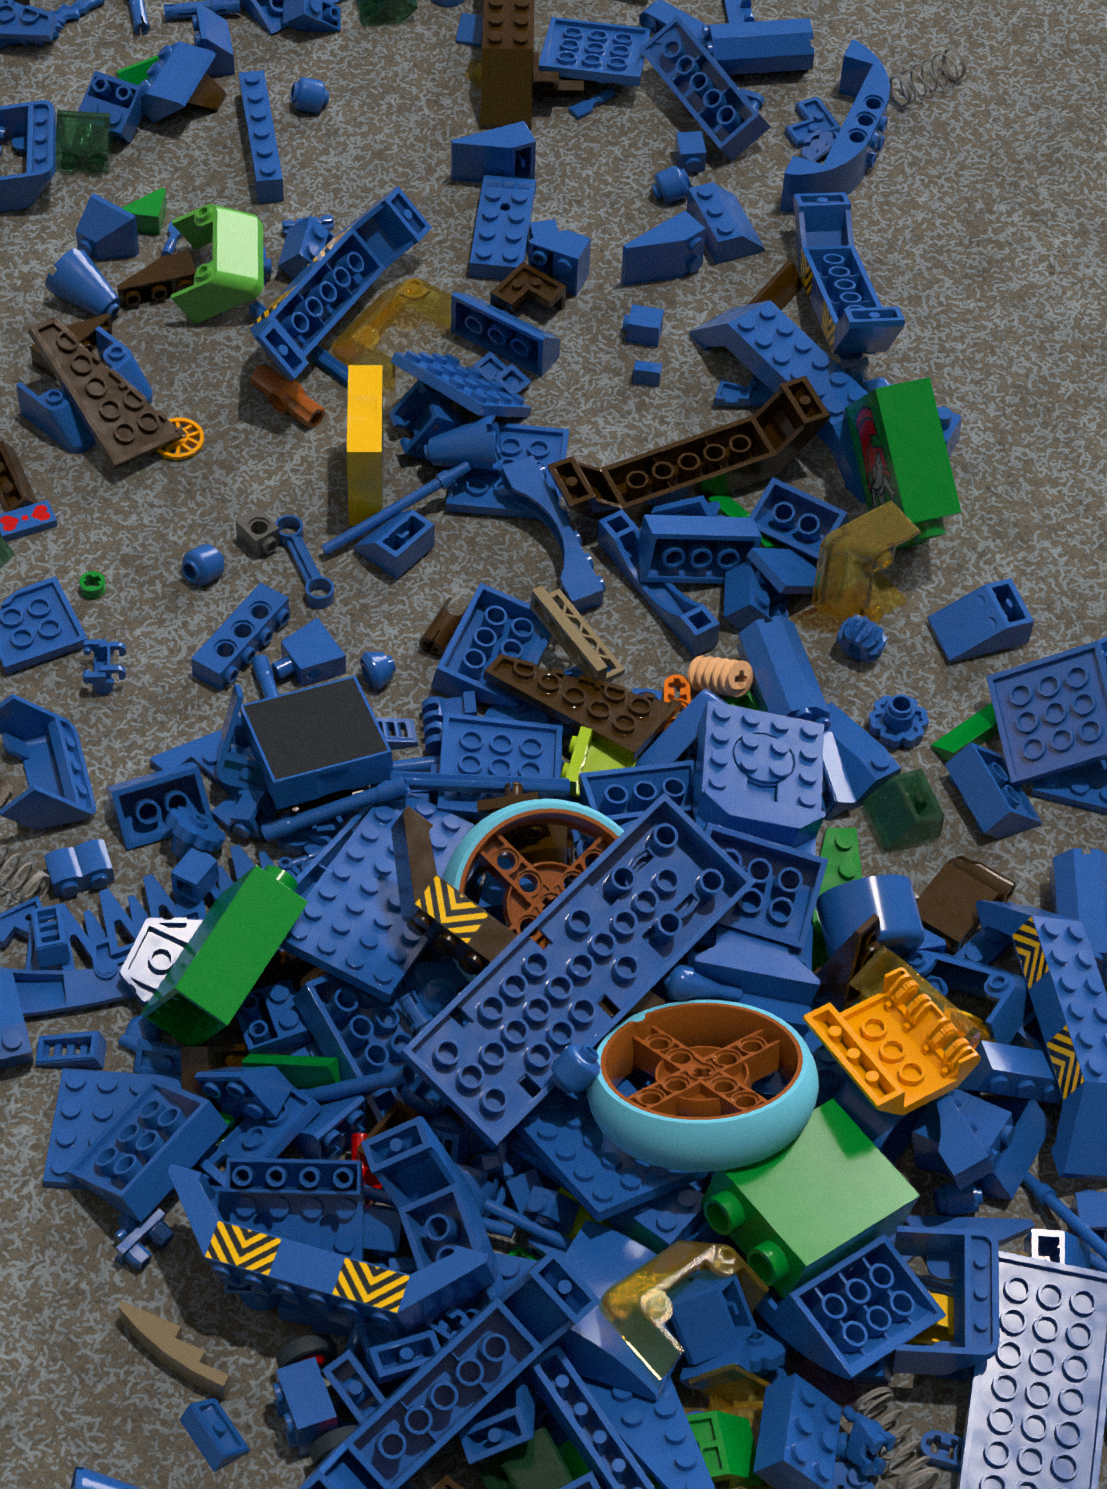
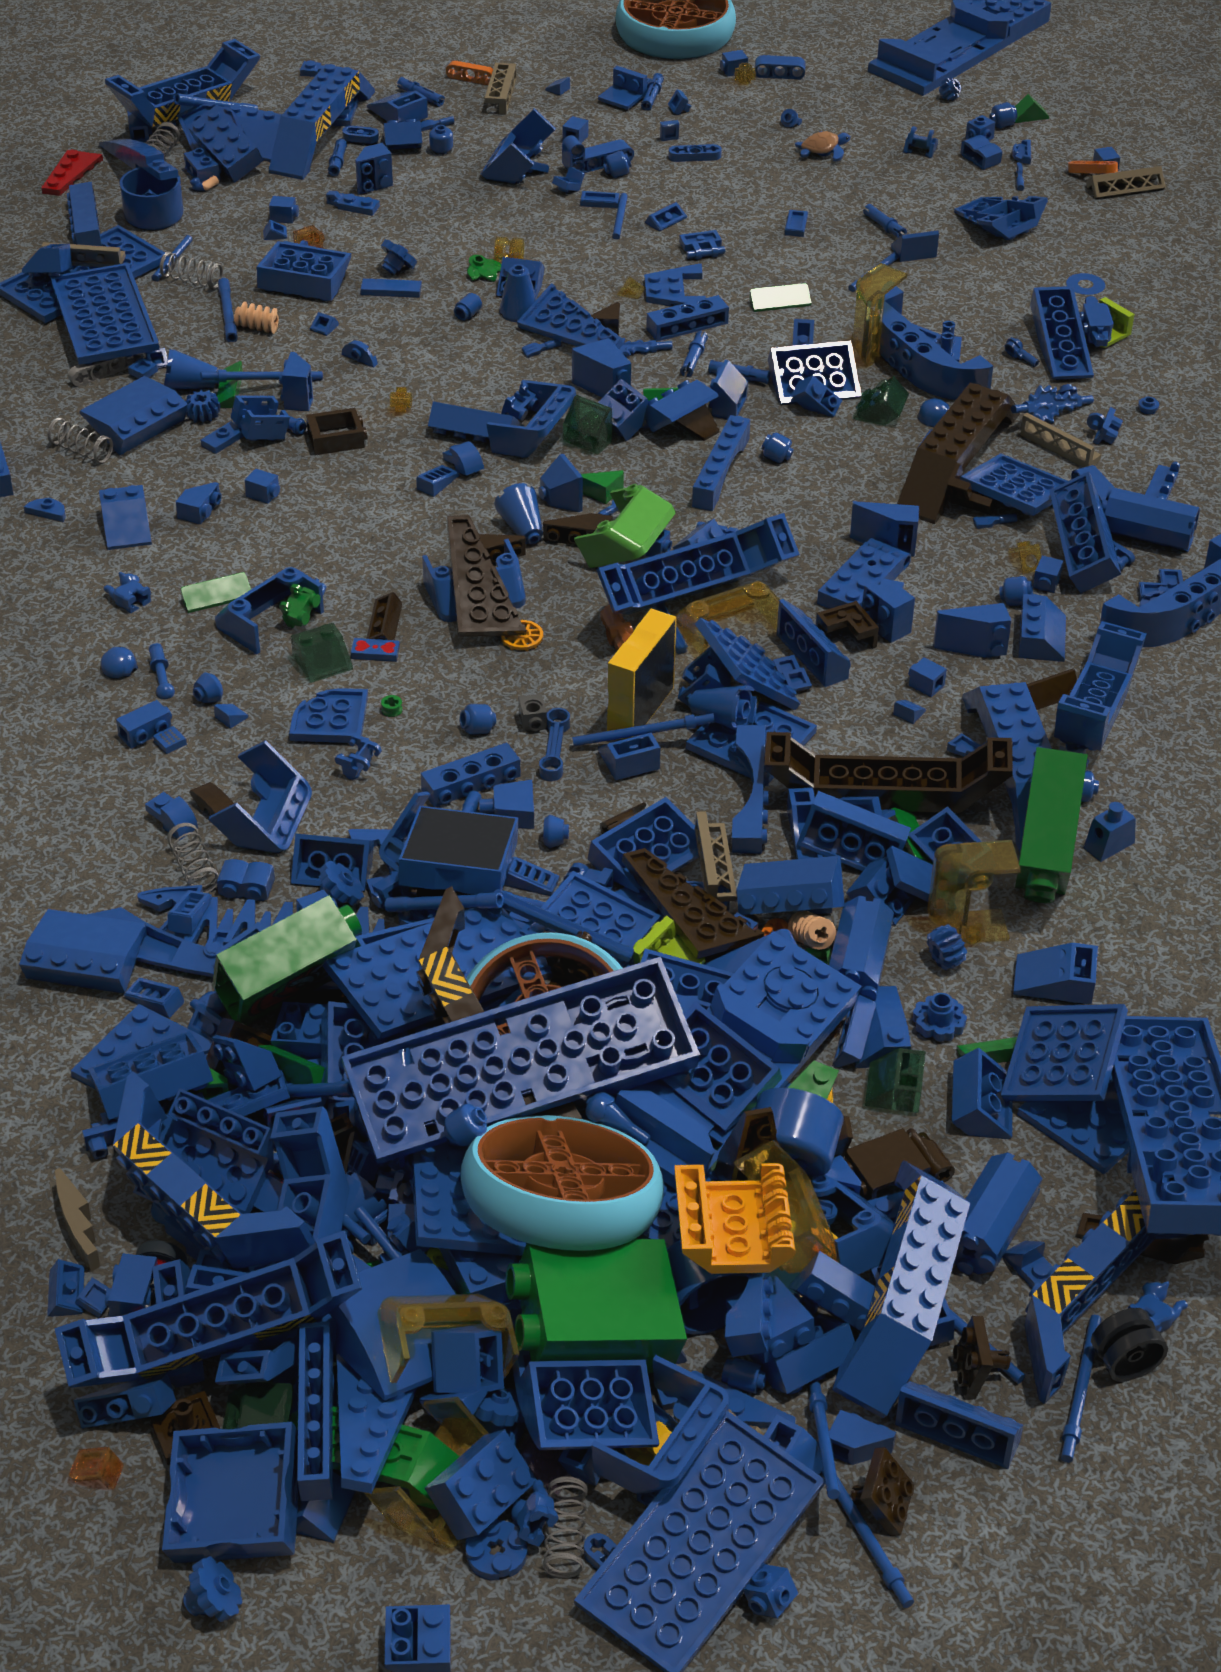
camera: 30 degrees right, 10 degrees down
(53, 62) = (599, 366): none -> blue slope
(255, 1427) = (93, 1297): none -> blue tile
(652, 130) = (1025, 549): none -> clear yellow bracket
(677, 636) = (790, 885): none -> blue slope

